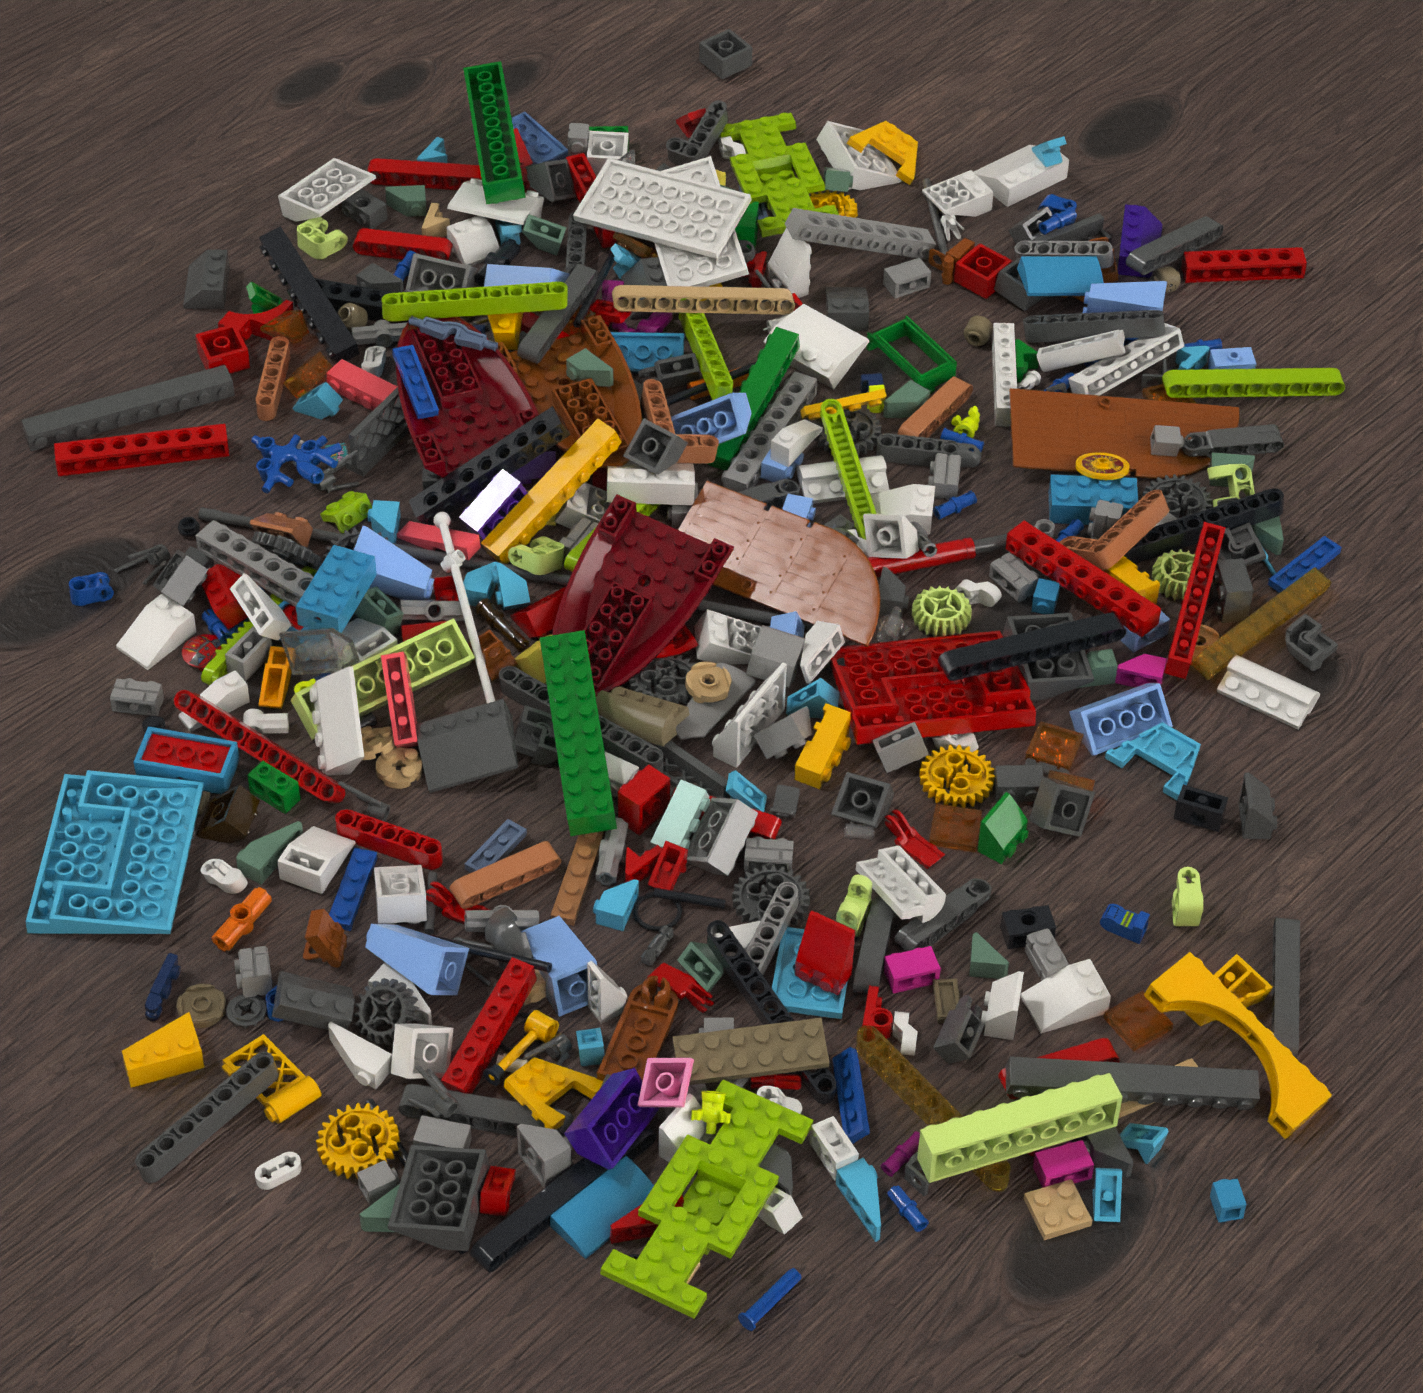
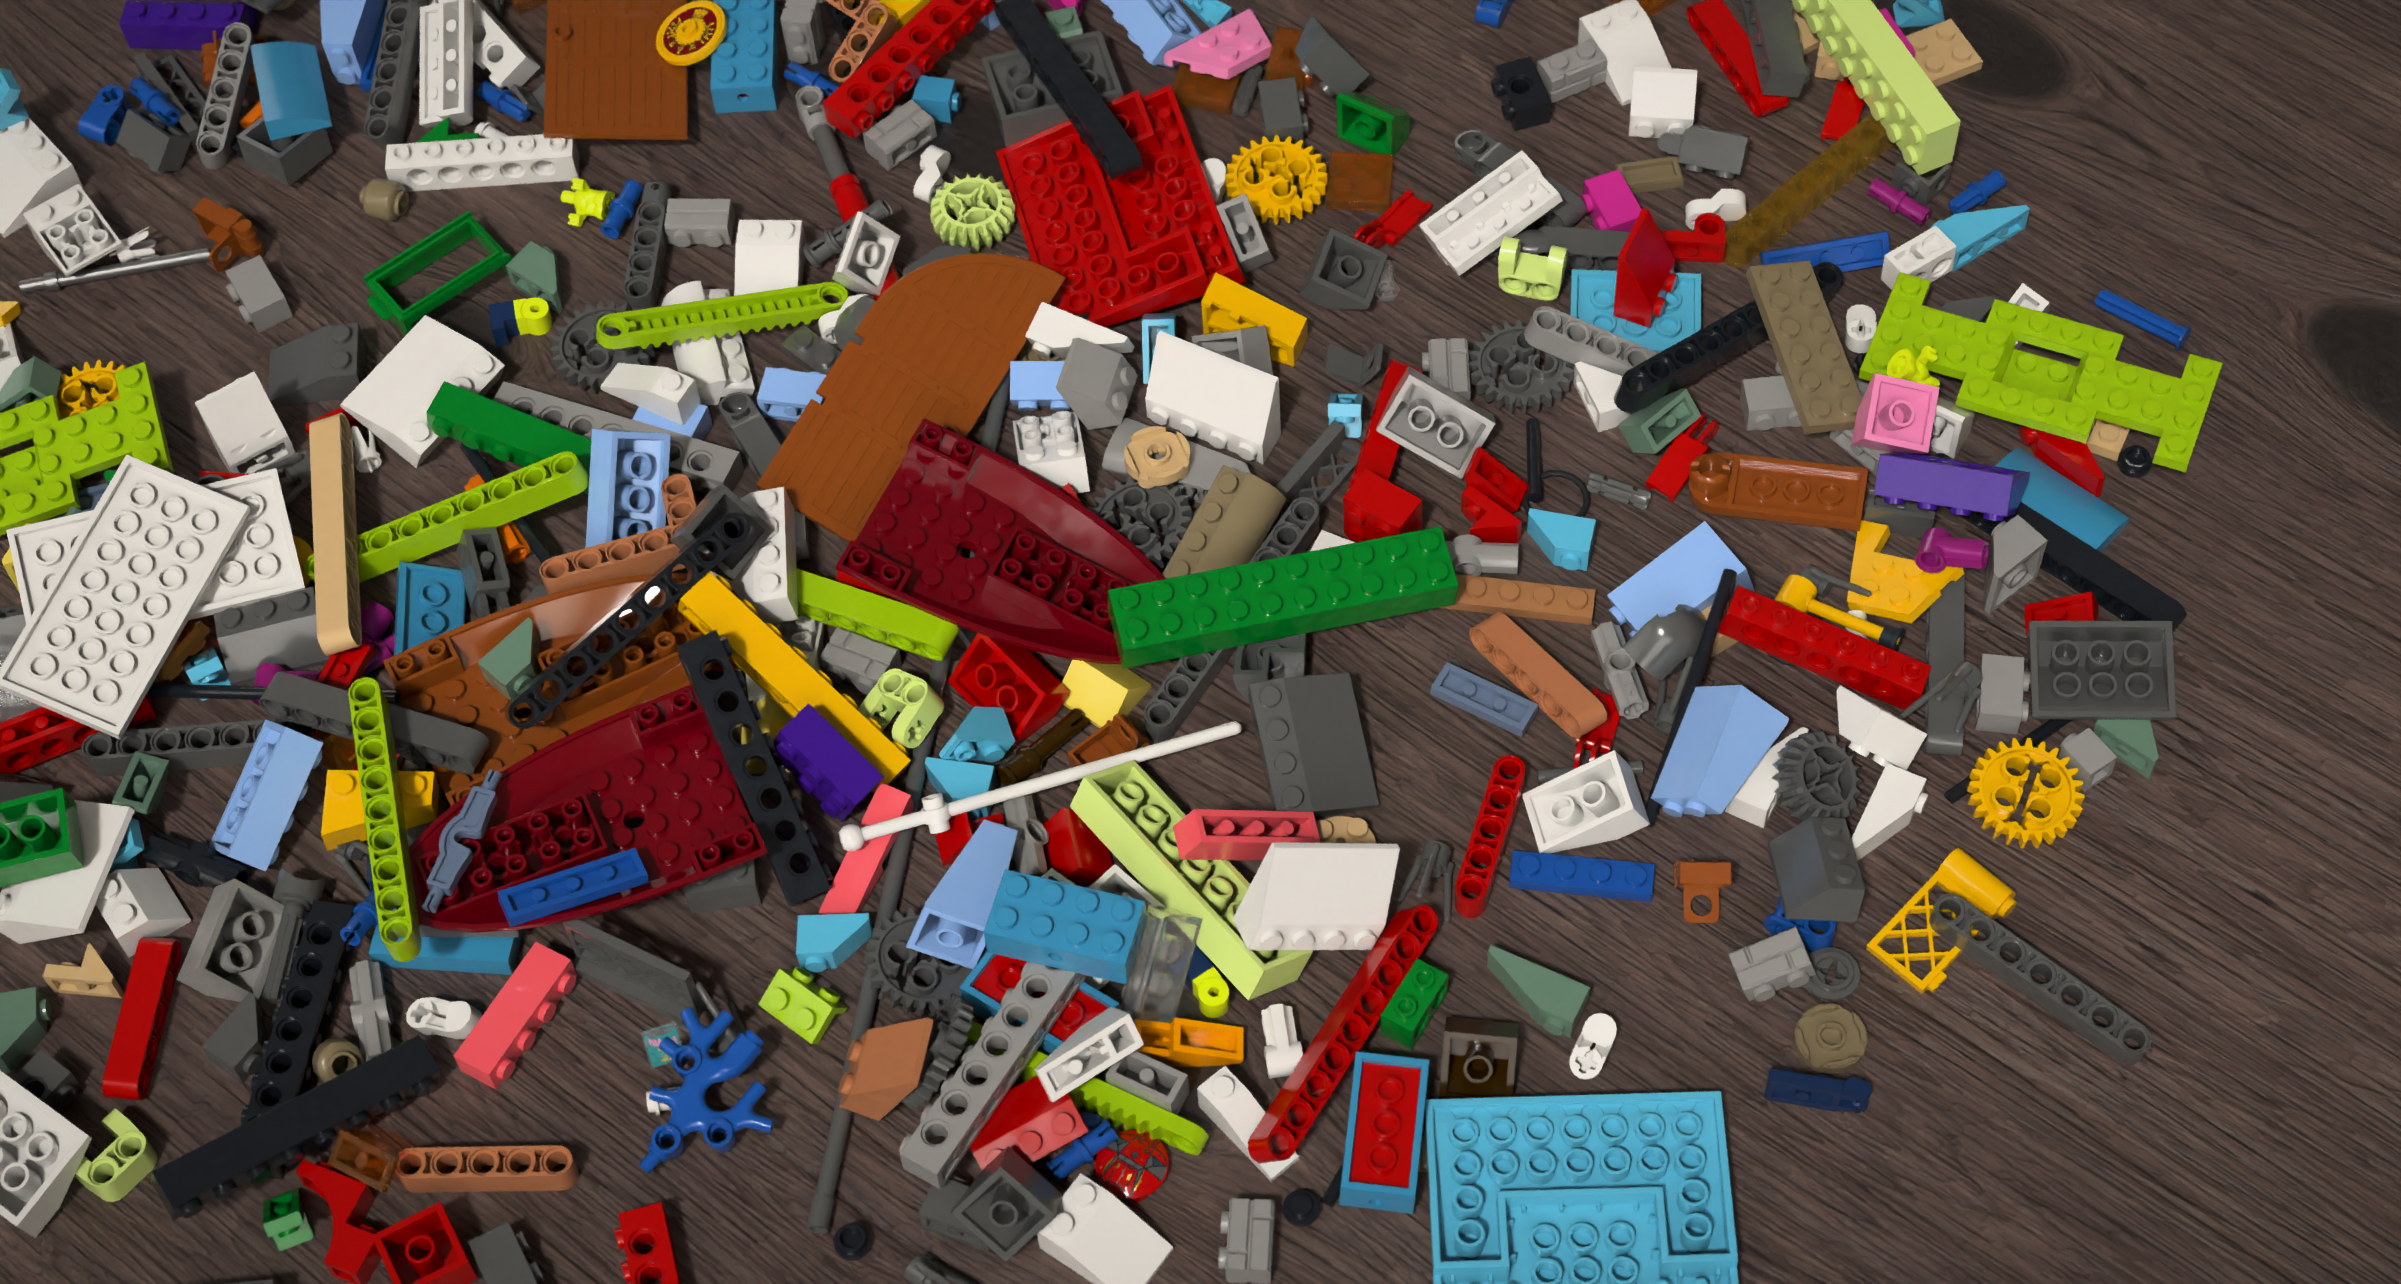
camera: 90 degrees left, 10 degrees up
(164, 1053) = (1937, 1059): yellow wedge -> none
(241, 919) = (1692, 1014): orange piece -> none
(277, 1170) = (2092, 886): white beam -> none
(308, 375) = (487, 1107): clear orange brick -> none
(314, 859) = (1541, 923): white slope -> none
(319, 402) = (547, 1087): medium azure slope -> none
(403, 267) = (199, 1007): blue pin -> none
(546, 1099) = (1941, 550): none -> magenta piece
(590, 1046) = (1809, 538): medium azure slope -> none
(593, 401) = (611, 626): none -> black beam
(604, 995) = (1739, 522): white slope -> none
(681, 815) = (1414, 468): light aqua brick -> none
(852, 403) = (570, 337): yellow plate -> none
(859, 233) = (199, 328): light grey brick -> none
(937, 409) = (574, 248): nougat beam -> none
(954, 505) = (753, 207): blue pin -> none
(980, 270) = (257, 191): red brick -> none
(985, 960) = (1579, 137): sand green slope -> none
(1080, 753) = (1224, 48): none -> bright pink wing

